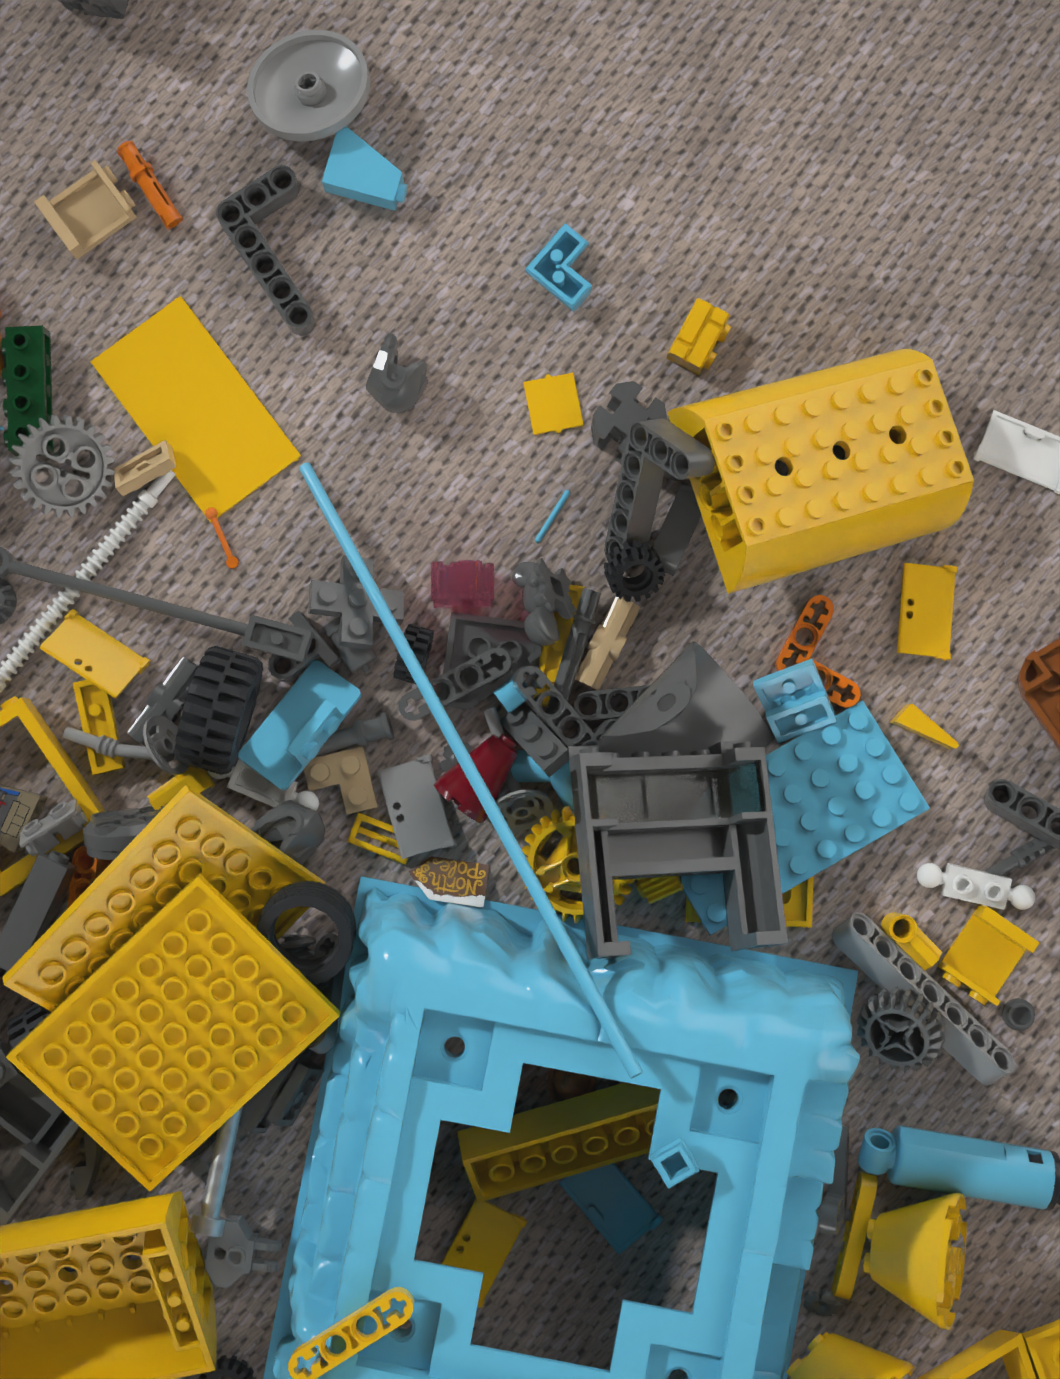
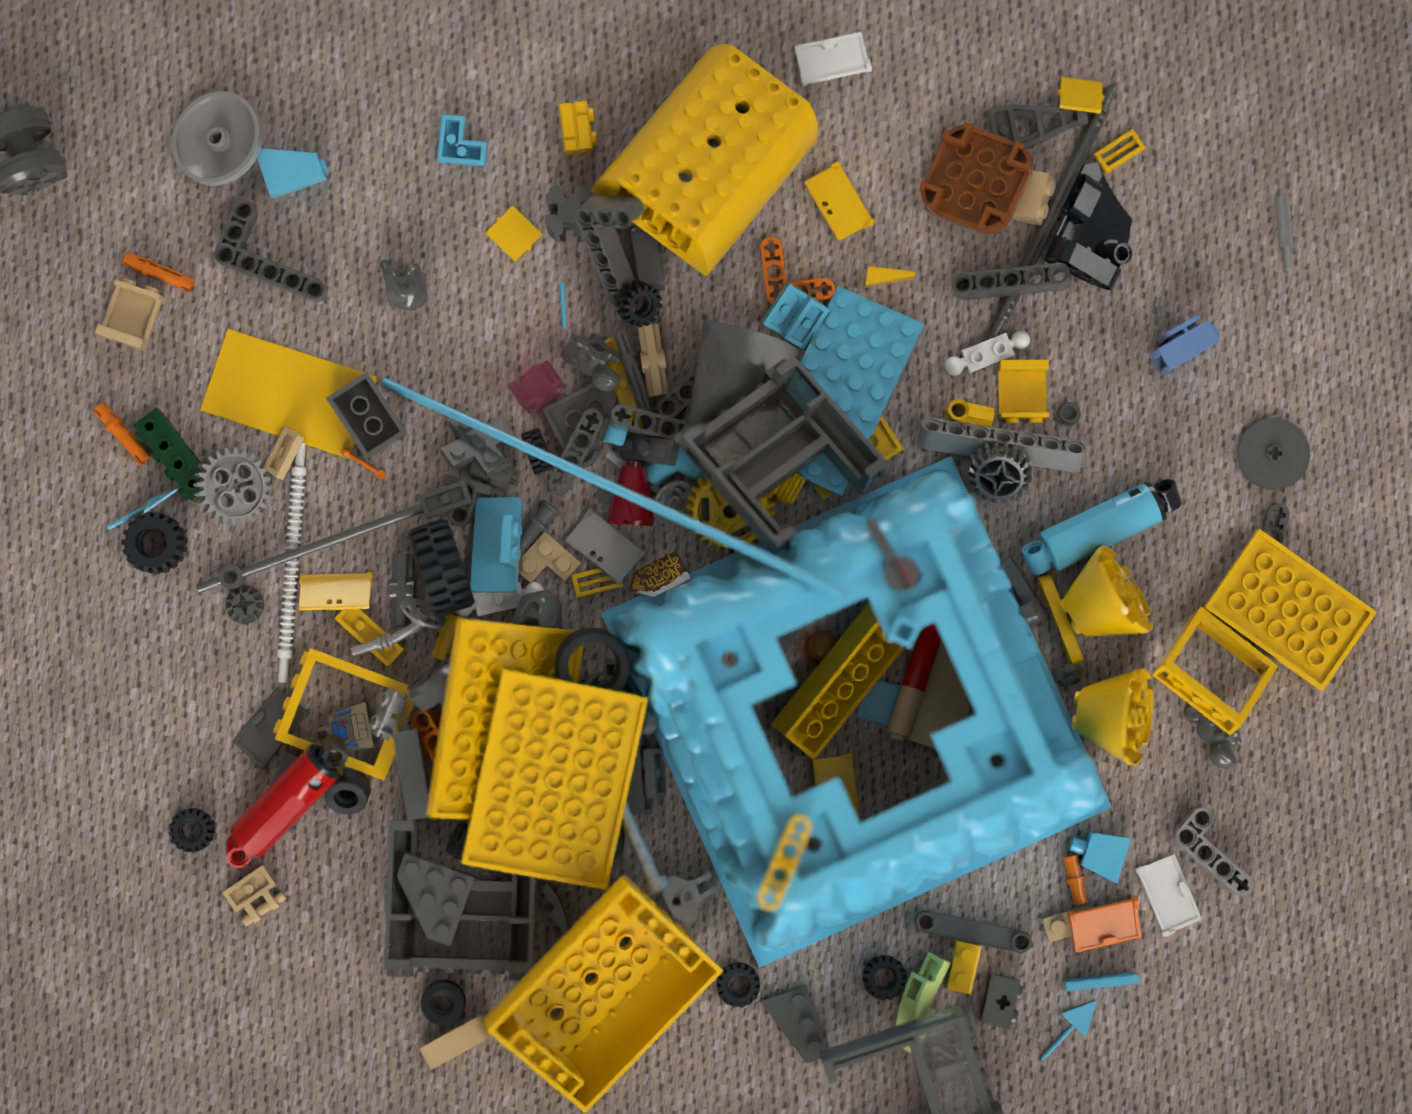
camera: 35 degrees left, 0 degrees up
(257, 489) = (366, 416): none -> dark grey brick
(651, 1230) = (930, 692): none -> tan door
(718, 1091) = (900, 572): none -> dark grey piece

